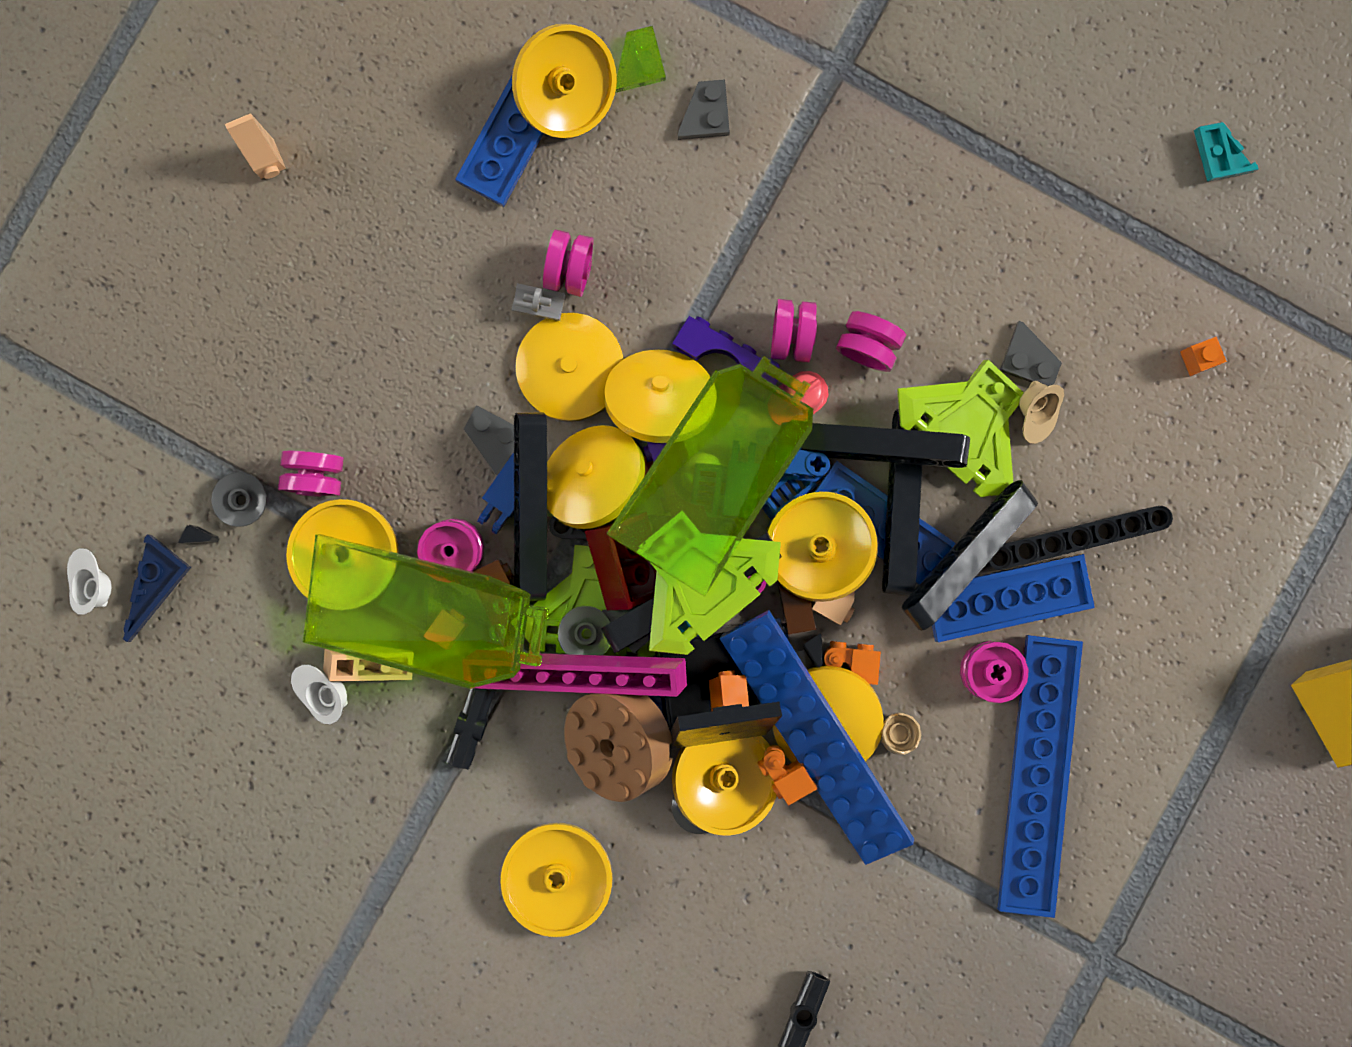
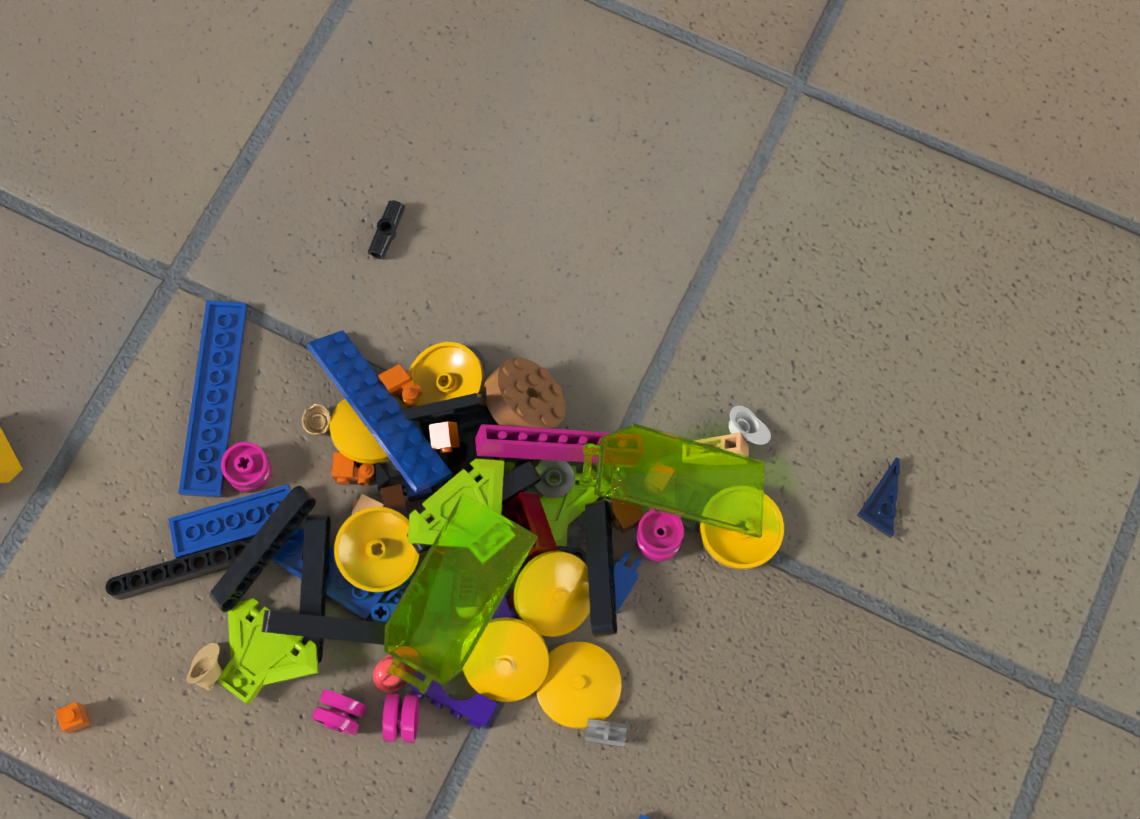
camera: 175 degrees right, 15 degrees down
(87, 583) = (931, 497): white piece -> none
(197, 535) = (853, 537): black slope -> none
(226, 496) = (832, 559): dark grey dish -> none
(310, 474) = (771, 585): dark pink wheel -> none
(470, 728) = (637, 405): black piece -> none
(492, 437) = (635, 625): dark grey wing -> none
(556, 879) = (565, 308): yellow dish -> none
(567, 262) = (583, 763): dark pink wheel -> none
(1030, 358) = (211, 711): dark grey wing -> none

